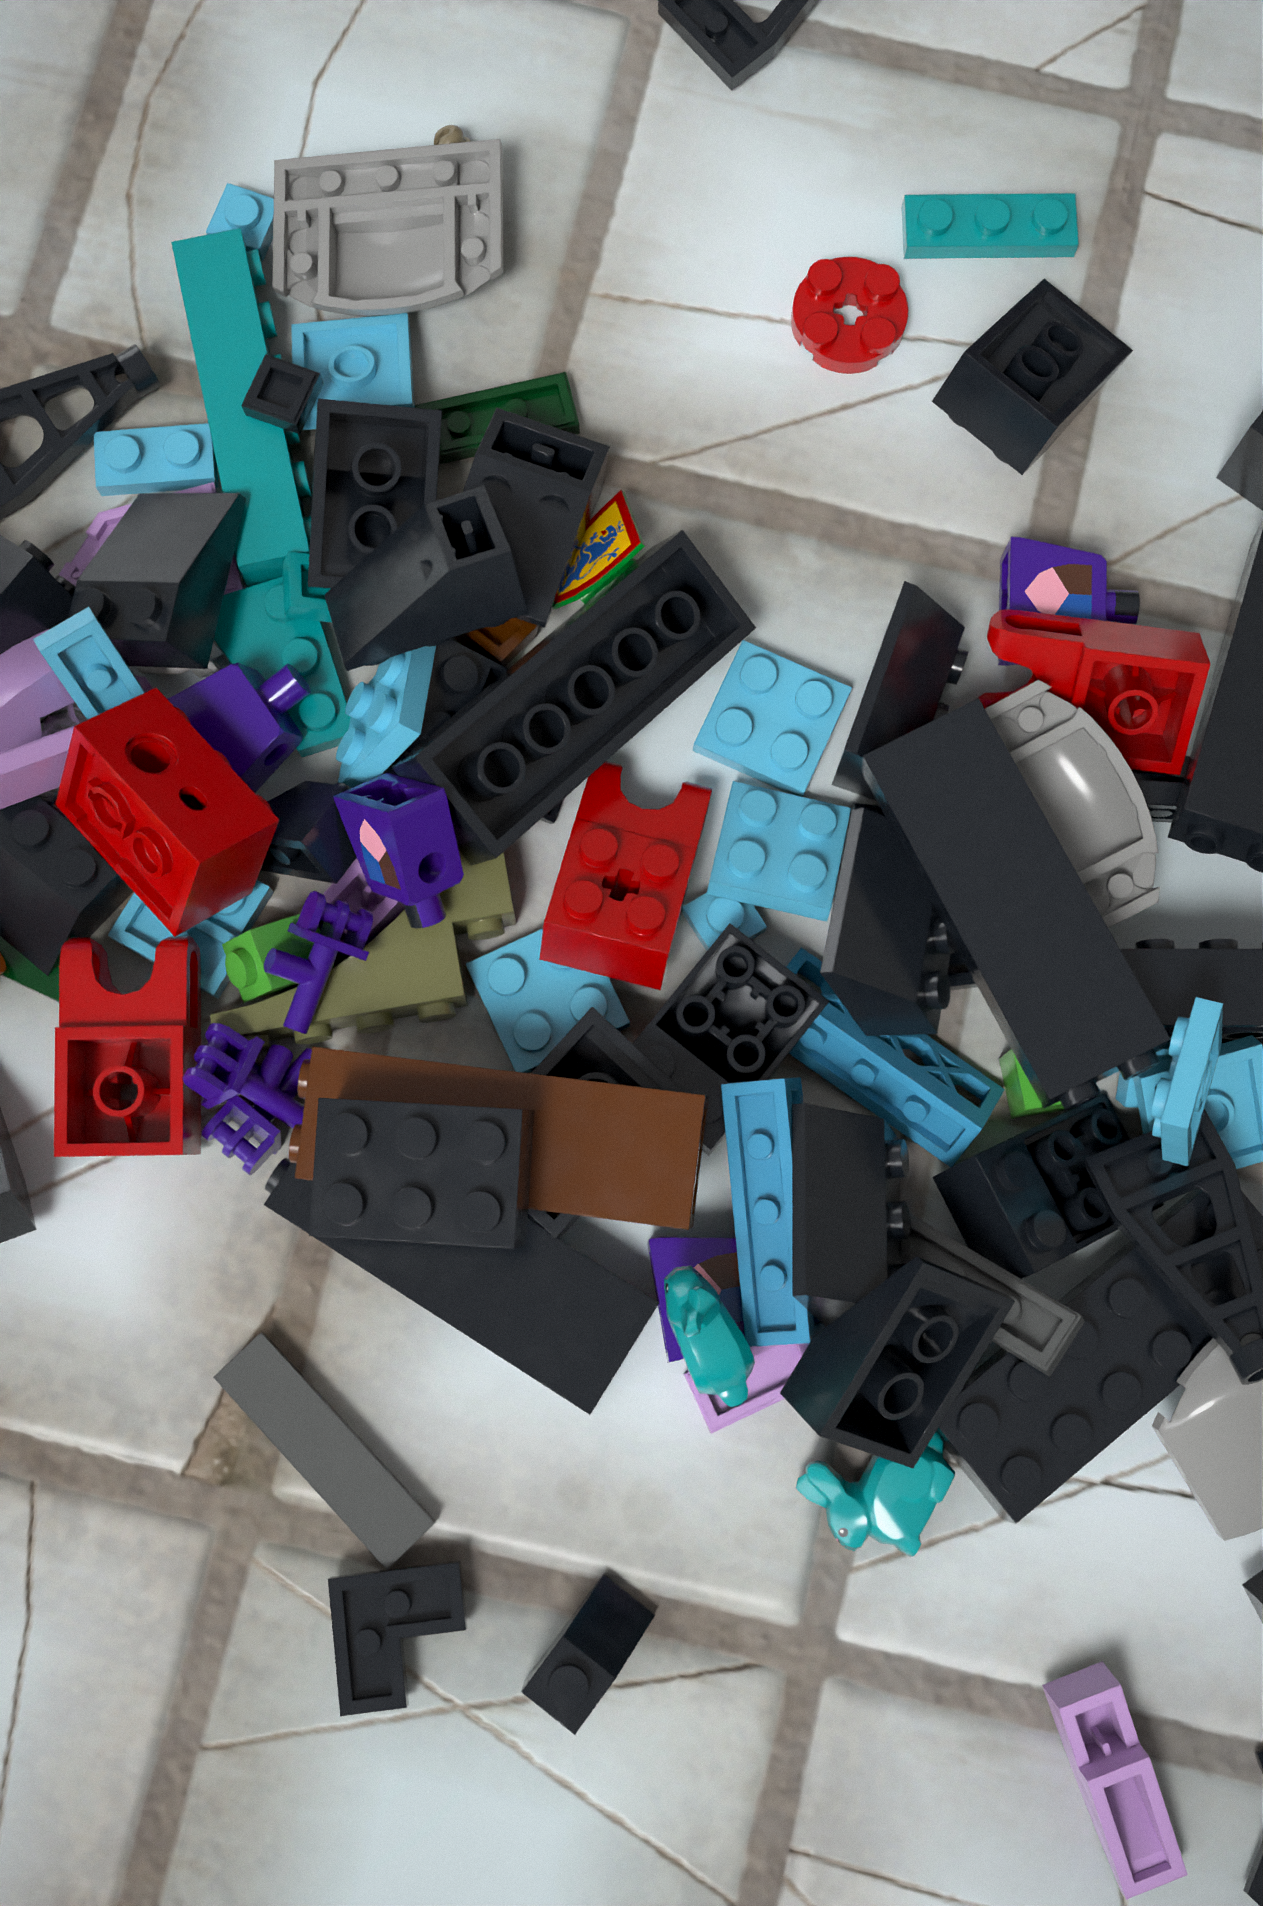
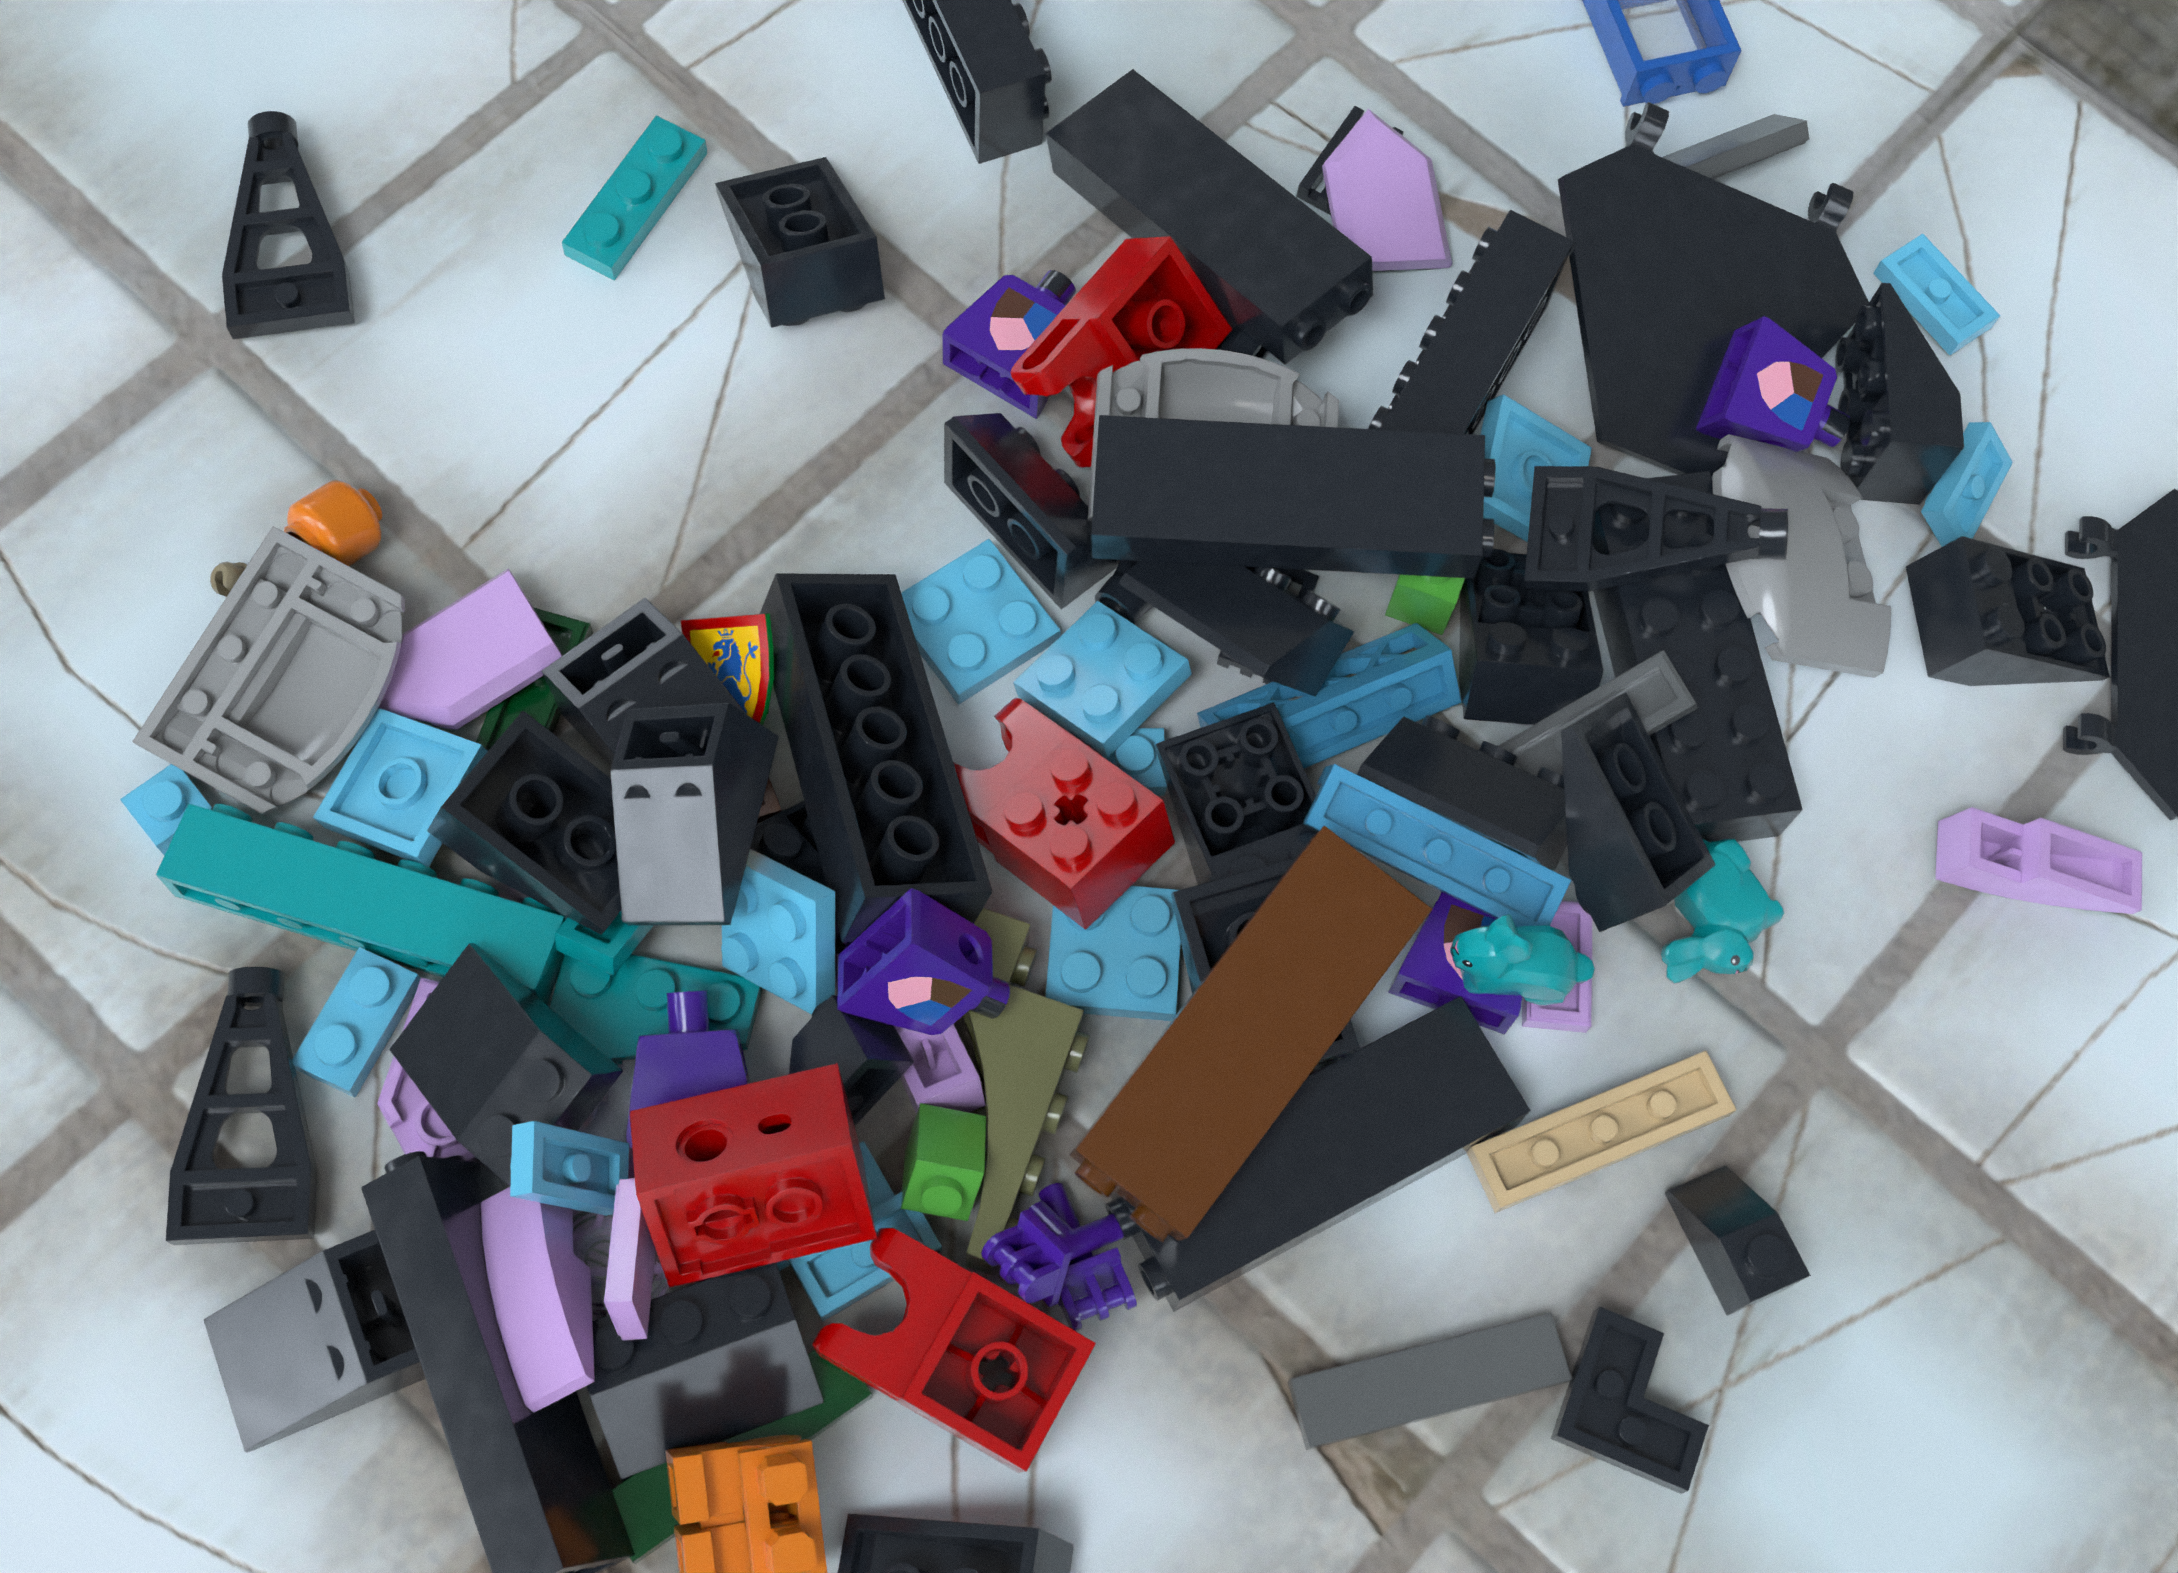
camera: 65 degrees left, 10 degrees down
(282, 394) = (392, 852): black tile -> none
(314, 972) = (958, 1086): dark purple arm -> none
(421, 1173) = (1261, 1102): black brick -> none
(494, 352) = (470, 656): none -> lavender tile
(540, 186) = (337, 521): none -> orange head
(620, 1490) = (1600, 1131): none -> tan plate
(857, 283) = (632, 318): red plate -> none
(1181, 1101) = (1537, 464): medium azure plate -> none

